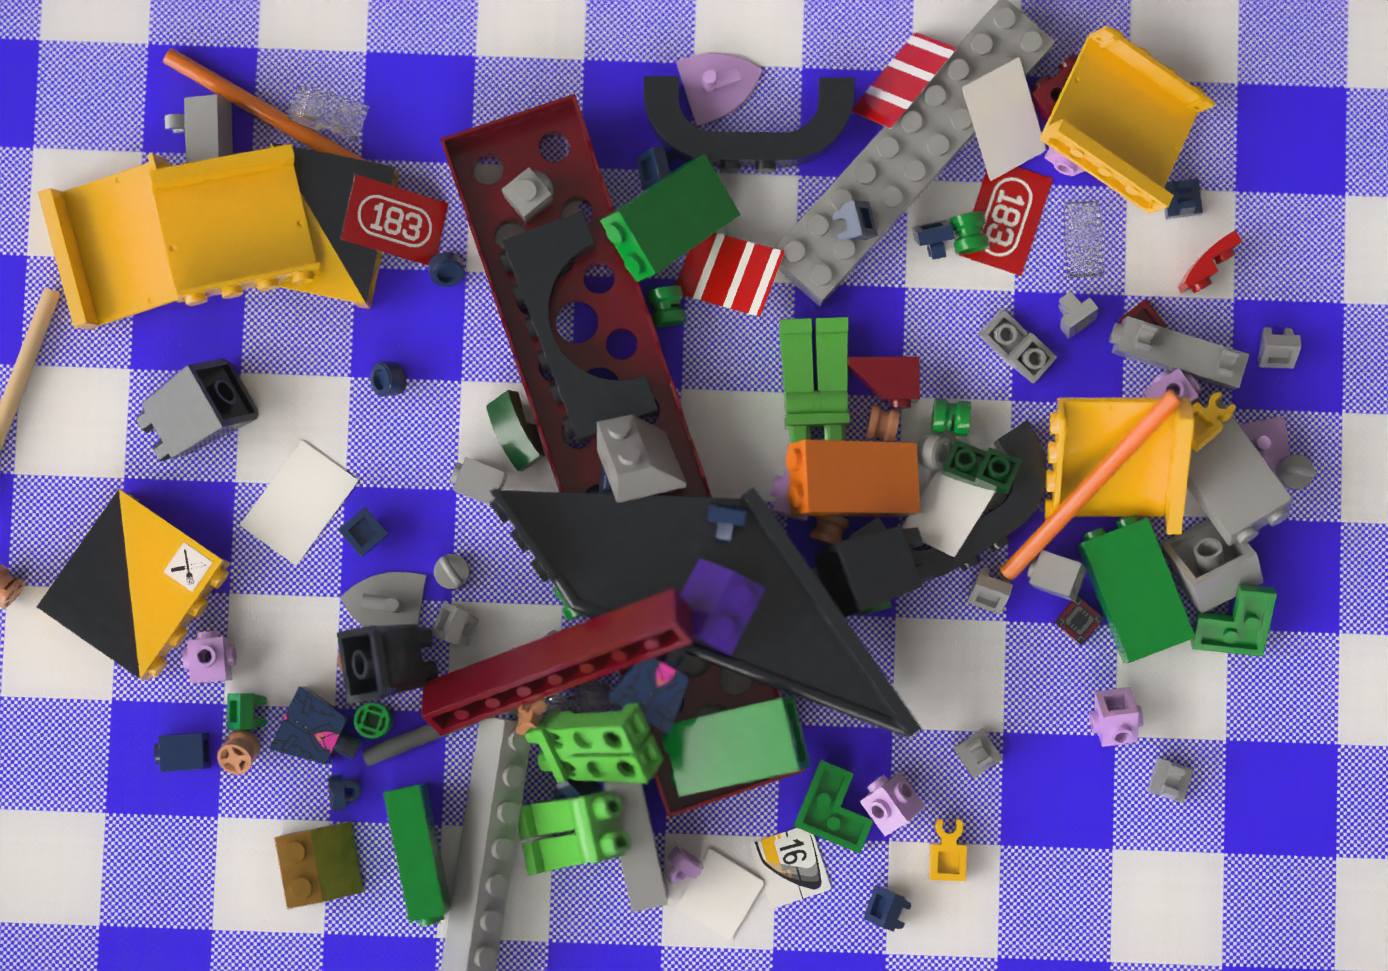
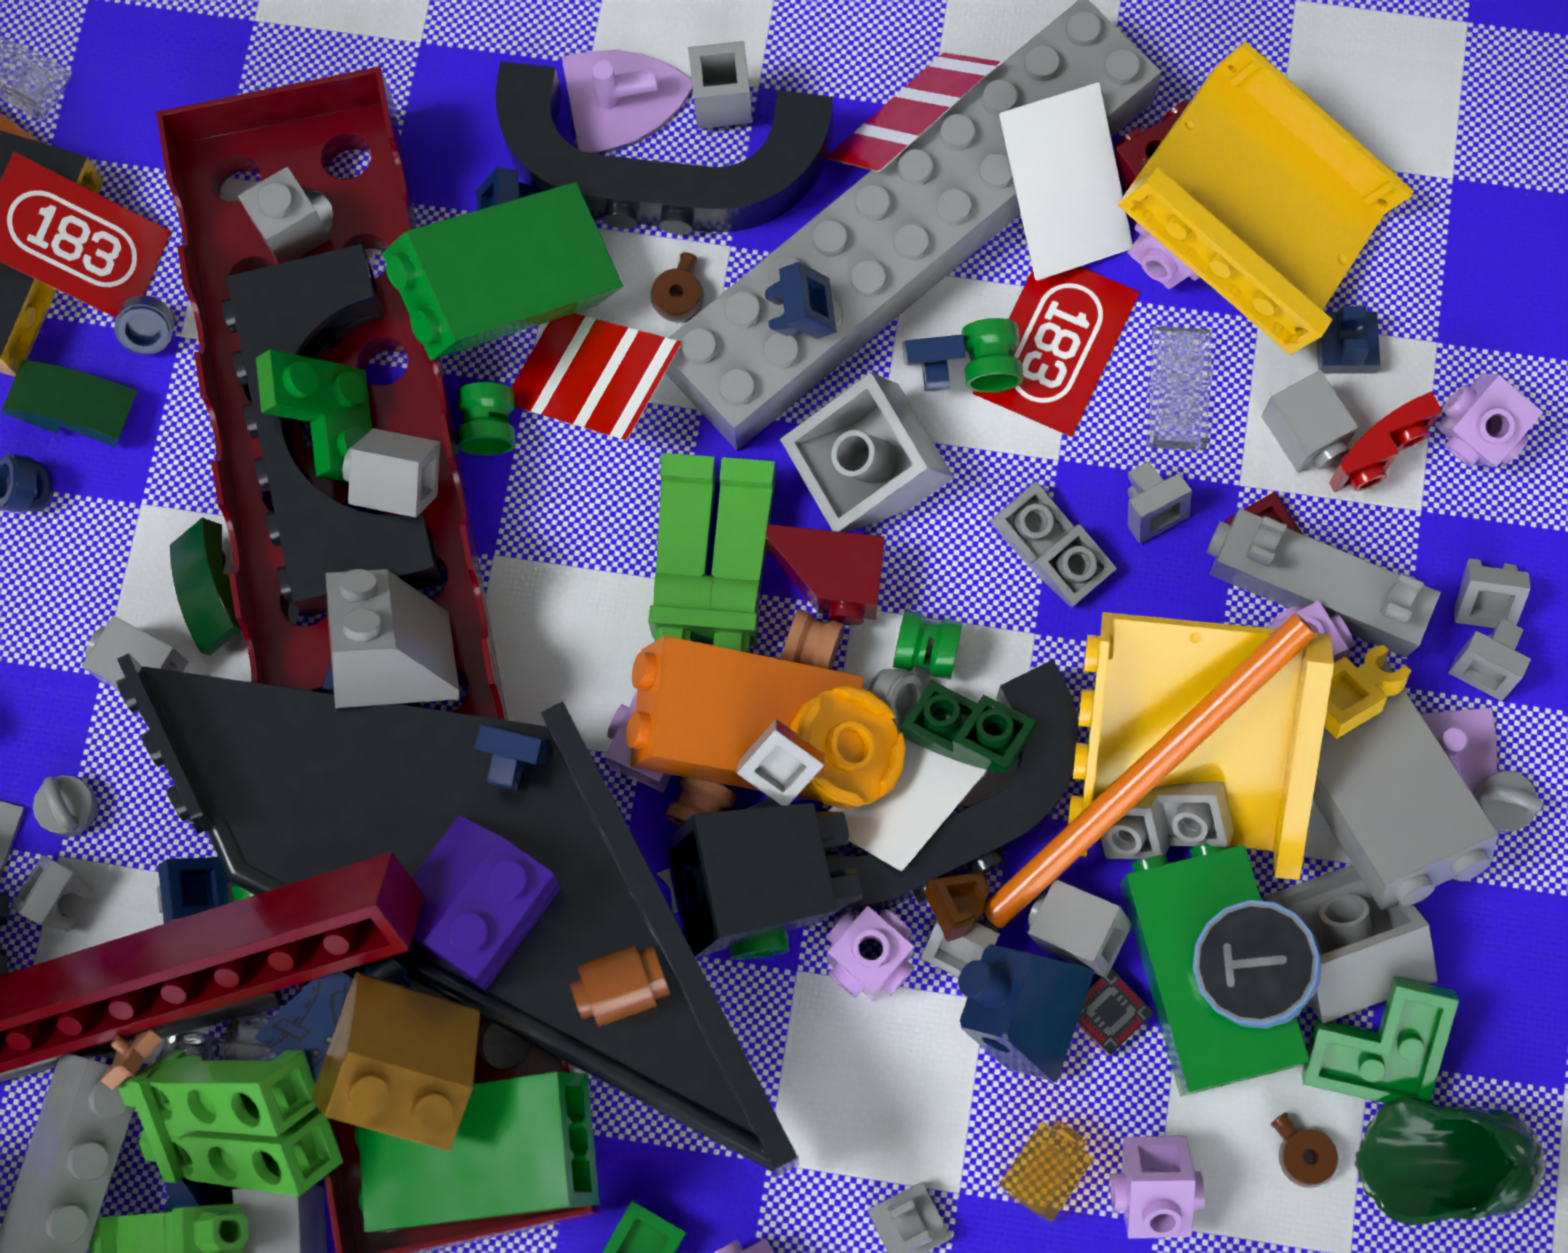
camera: 15 degrees right, 10 degrees down
(409, 323) = (70, 399): none -> dark green slope
(540, 614) = (190, 886): none -> dark blue tile
(579, 312) = (321, 393): none -> green plate
(624, 354) = (392, 472): none -> light grey brick
(694, 704) = (400, 1062): none -> pearl gold slope
(773, 203) = (680, 281): none -> reddish brown piece
(782, 75) = (720, 84): none -> light grey brick
(808, 645) = (619, 985): none -> dark orange brick
(880, 505) = (780, 763): none -> plate
(901, 306) = (866, 455): none -> light grey slope
(913, 487) = (859, 746): none -> light orange tile
(926, 608) = (870, 976): none -> lavender brick
(987, 570) = (958, 902): none -> reddish brown tile
(1031, 625) = (1023, 1008): none -> dark blue torso
(1052, 714) = (1046, 1169): none -> clear yellow brick
(1107, 504) = (1171, 817): none -> light grey slope
(1162, 587) = (1257, 964): none -> black tile
(1164, 254) = (1310, 423): none -> light grey brick
(1189, 685) = (1293, 1146): none -> reddish brown piece
(1269, 243) = (1487, 421): none -> lavender brick
(1276, 683) = (1448, 1162): none -> dark green hair
(1281, 389) = (1492, 661): none -> light grey tile

